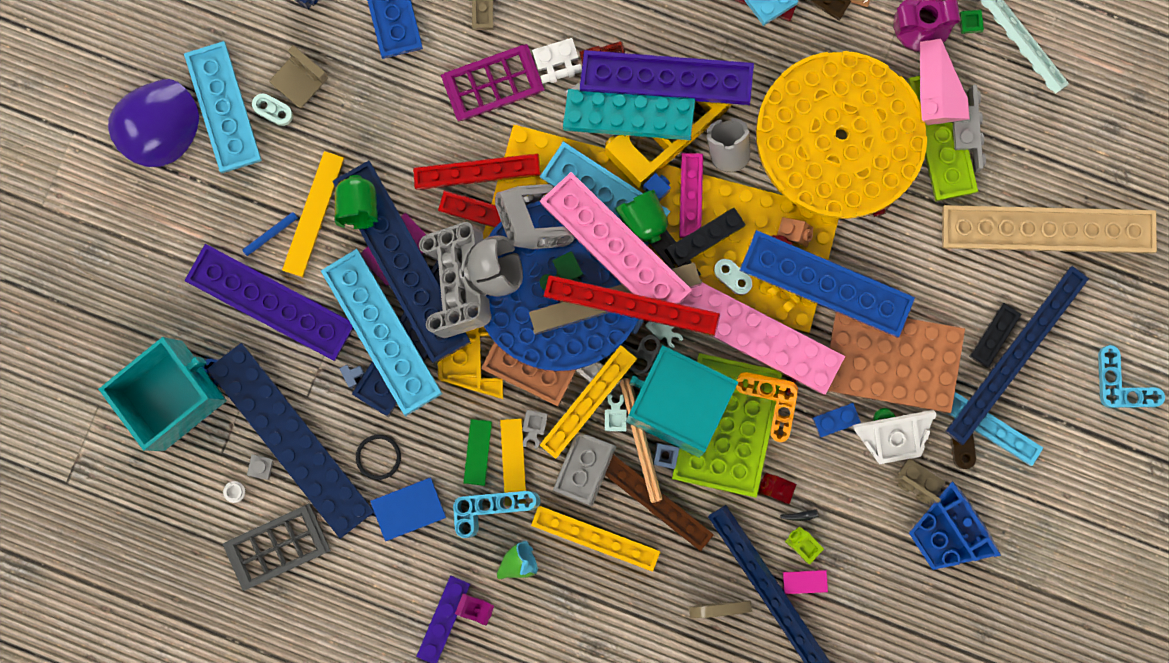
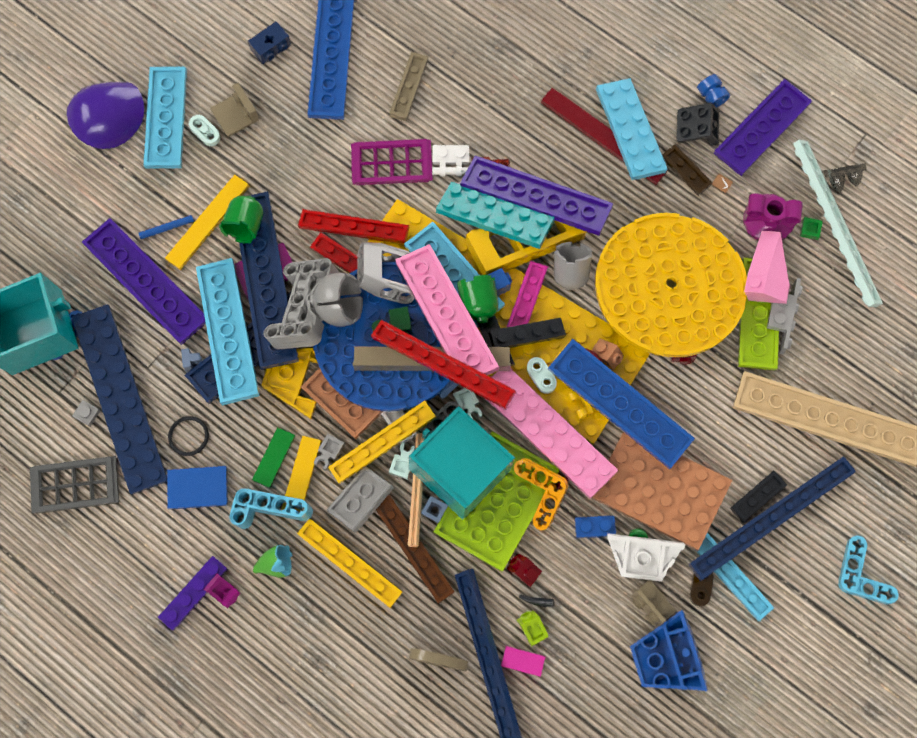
camera: 20 degrees right, 10 degrees down
(234, 492) = (56, 427): white plate -> none

